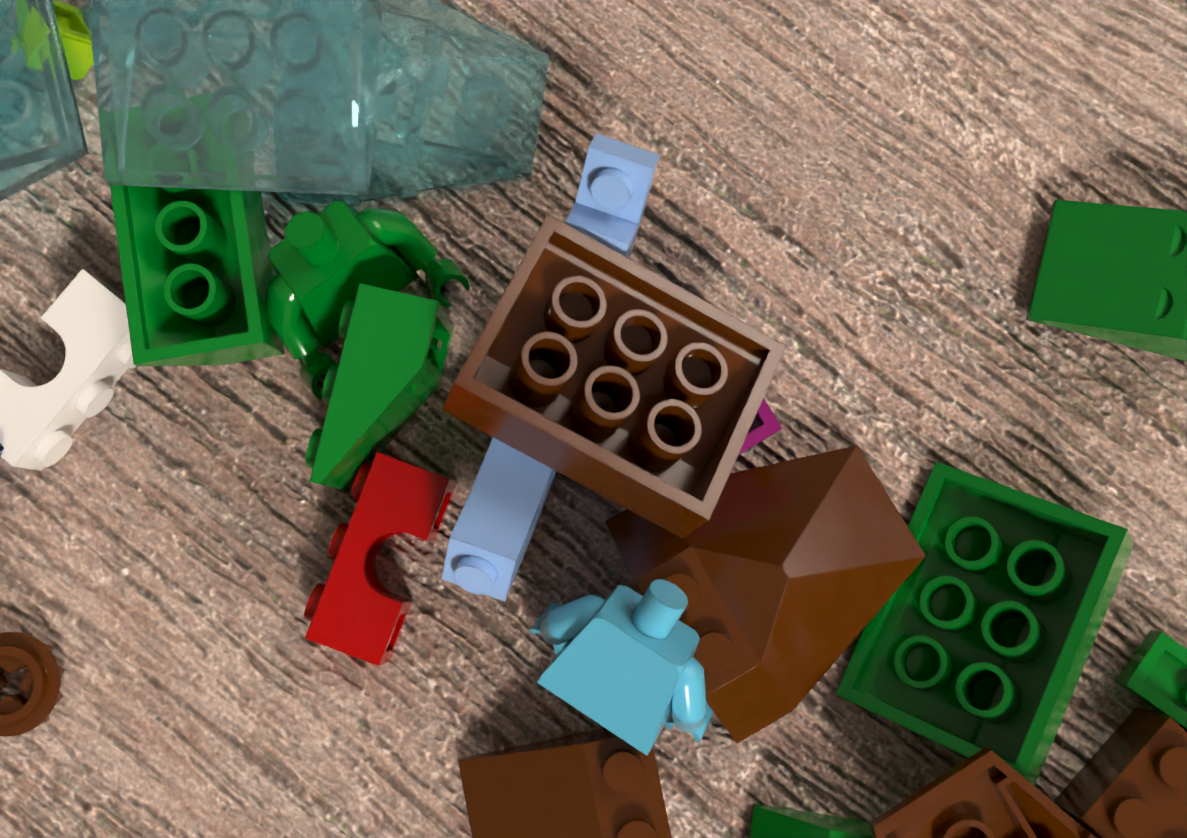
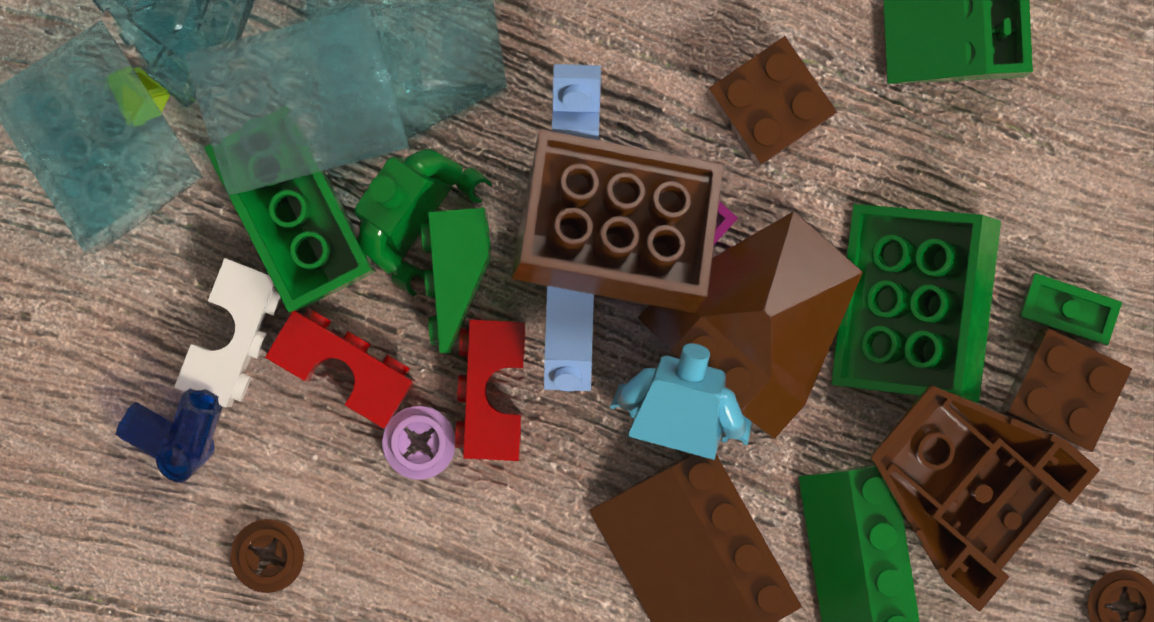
camera: 25 degrees left, 5 degrees up
(230, 500) = (308, 342): none -> red arch
(235, 584) = (396, 442): none -> lavender gear
(870, 291) = (771, 102): none -> reddish brown brick

